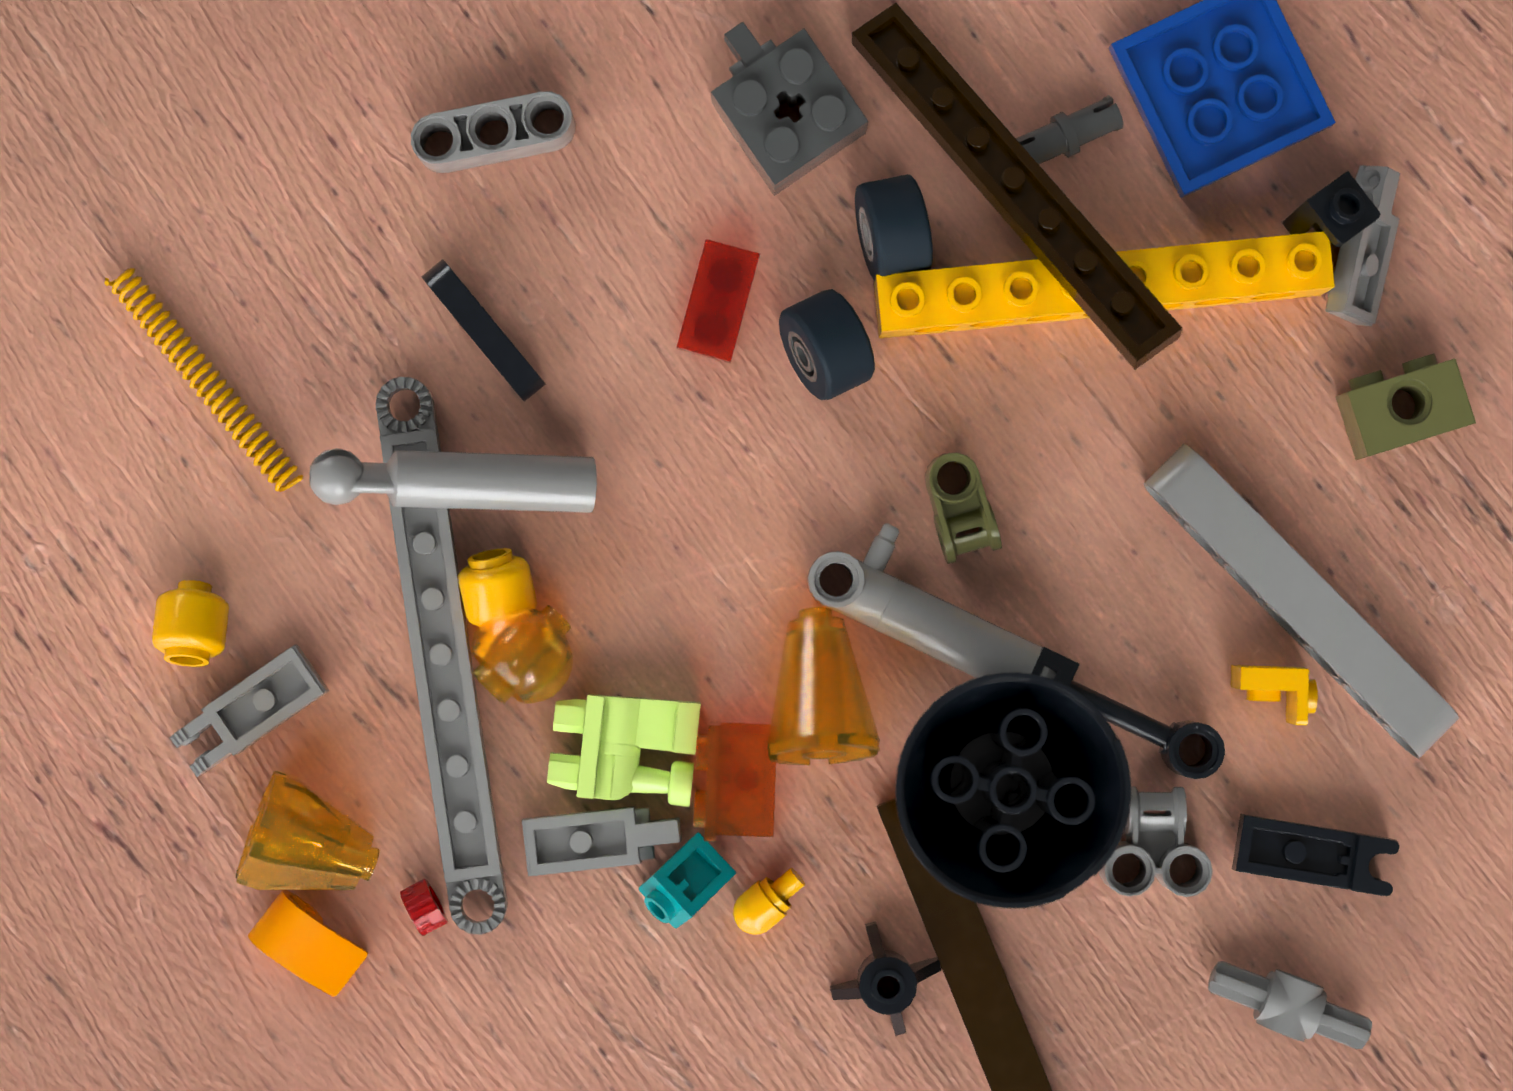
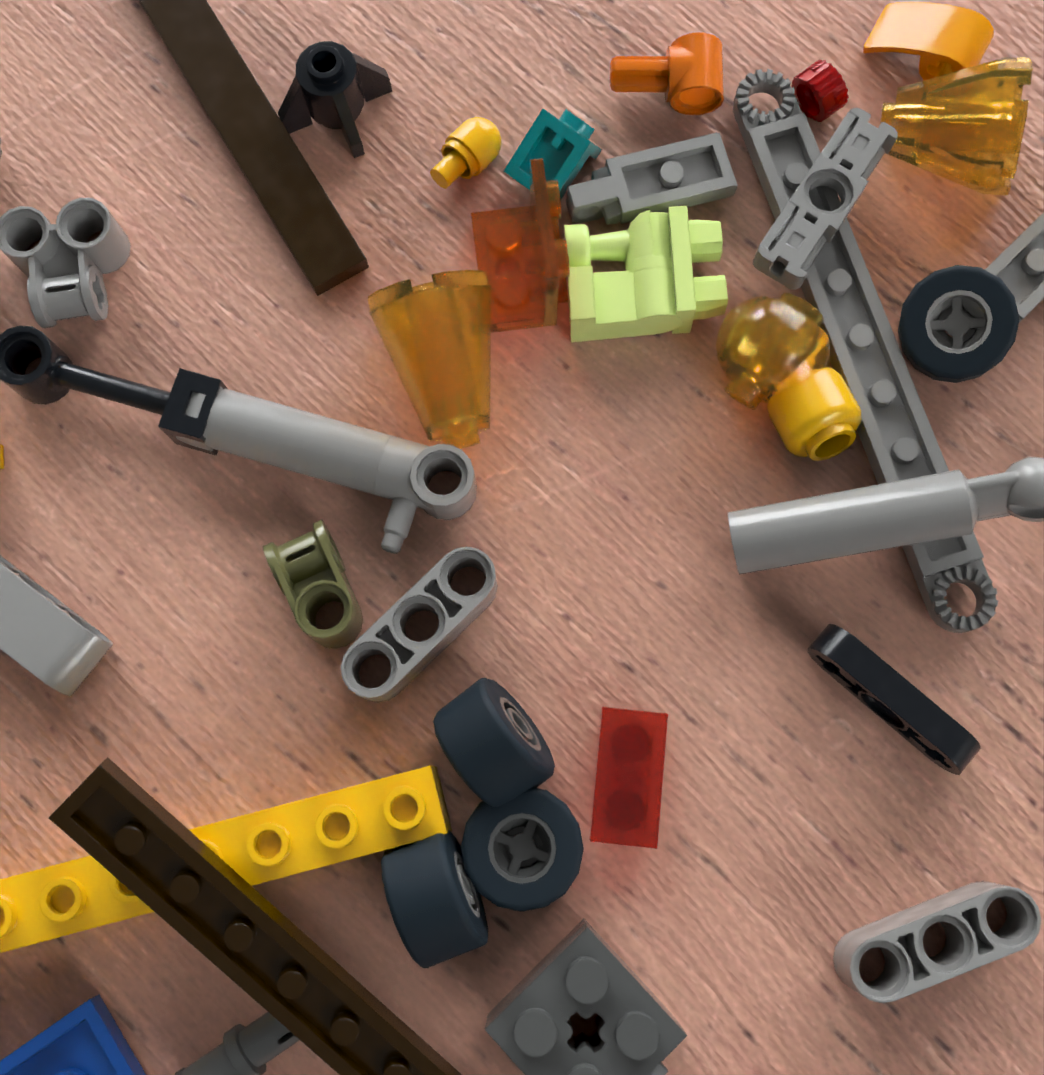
camera: 170 degrees right, 10 degrees down
(364, 630) = (960, 303): none -> black wheel
(424, 817) = (804, 228): none -> light grey piece
(544, 945) = (687, 74): none -> orange axle
(826, 241) = (527, 867): none -> black wheel
(889, 432) = (431, 594): none -> light grey beam
(1013, 790) = (202, 249): black cone -> none

